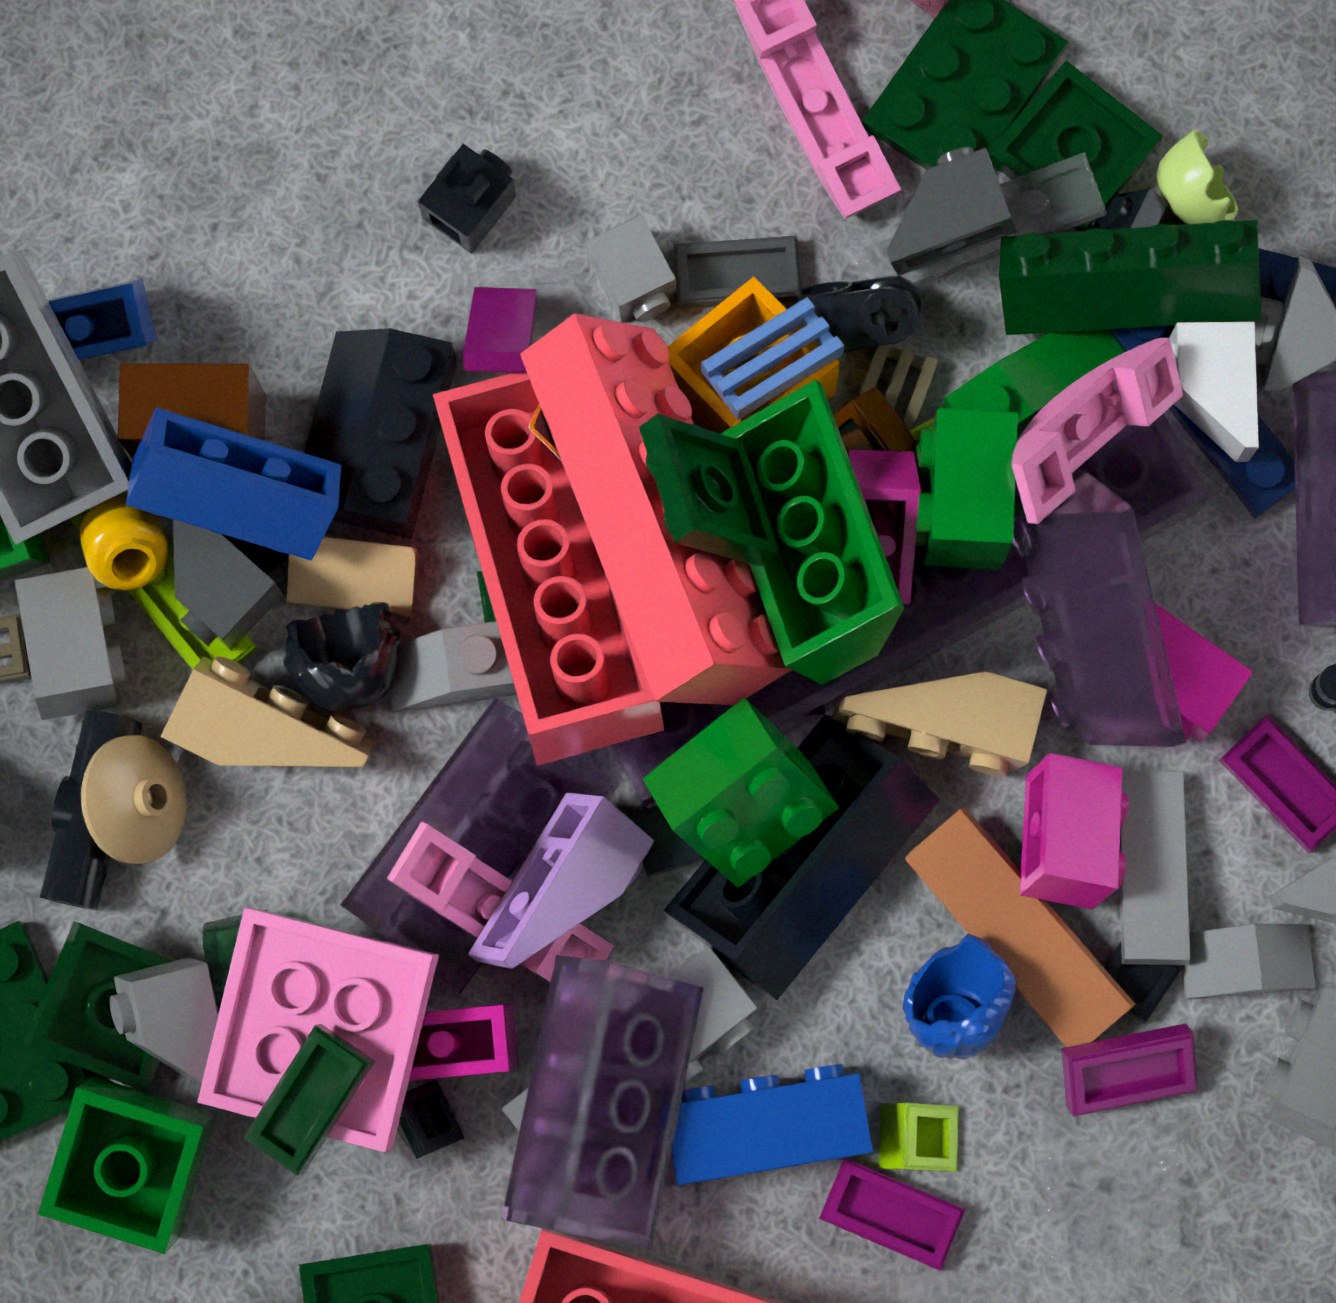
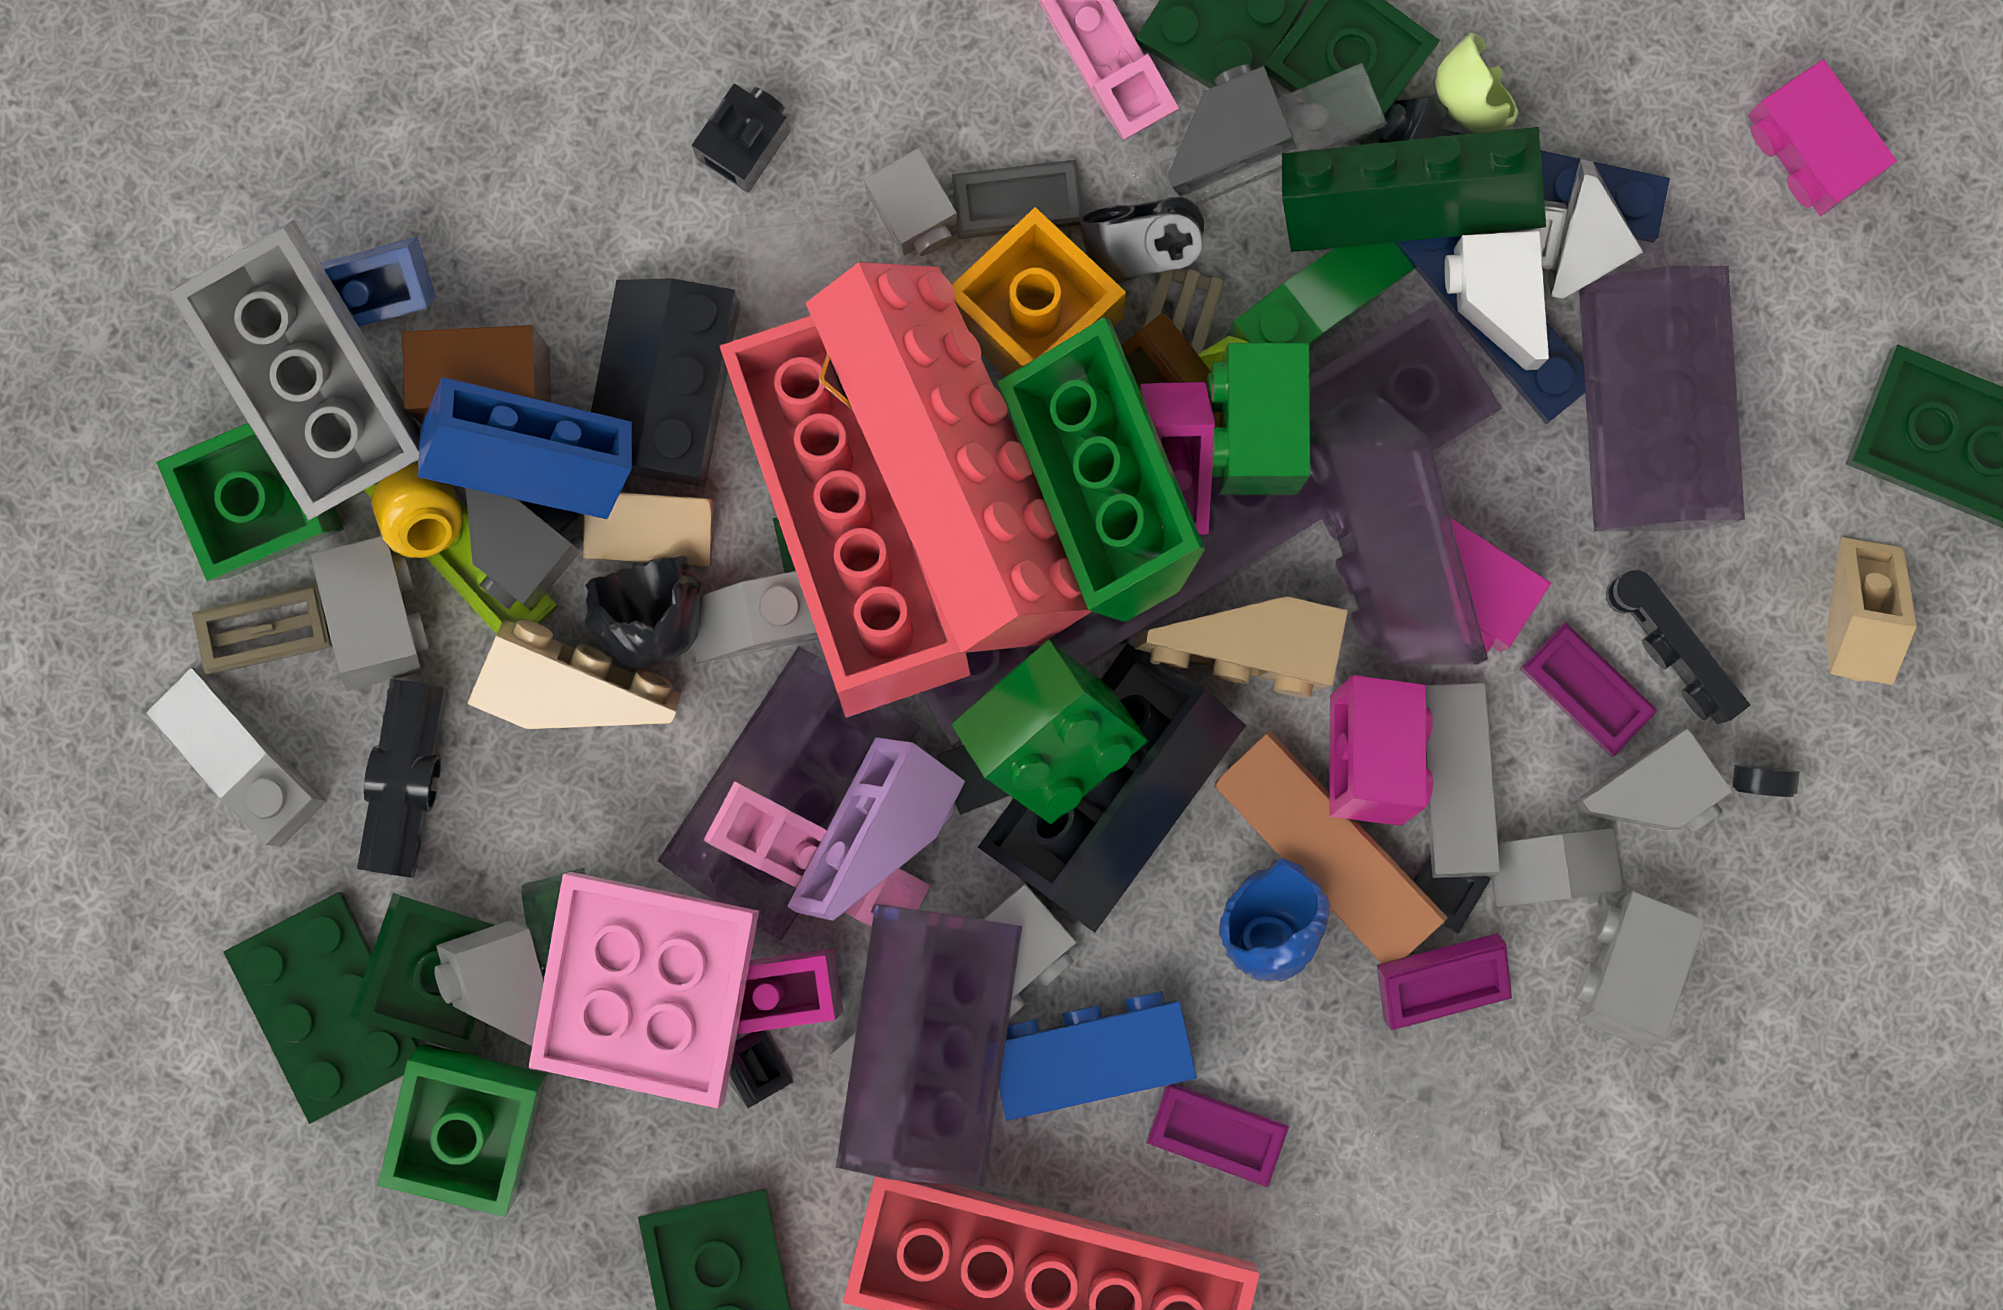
camera: 10 degrees left, 5 degrees up
(133, 799) = (444, 767): tan dish -> none
(309, 1099) = (639, 1060): dark green tile -> none
(499, 329) = (782, 274): magenta tile -> none
(708, 491) = (1002, 438): dark green plate -> none
(748, 345) = (1099, 260): medium blue tile -> none
(918, 1137) = (1239, 1057): lime slope -> none
(1085, 416) = (1375, 338): bright pink slope -> none

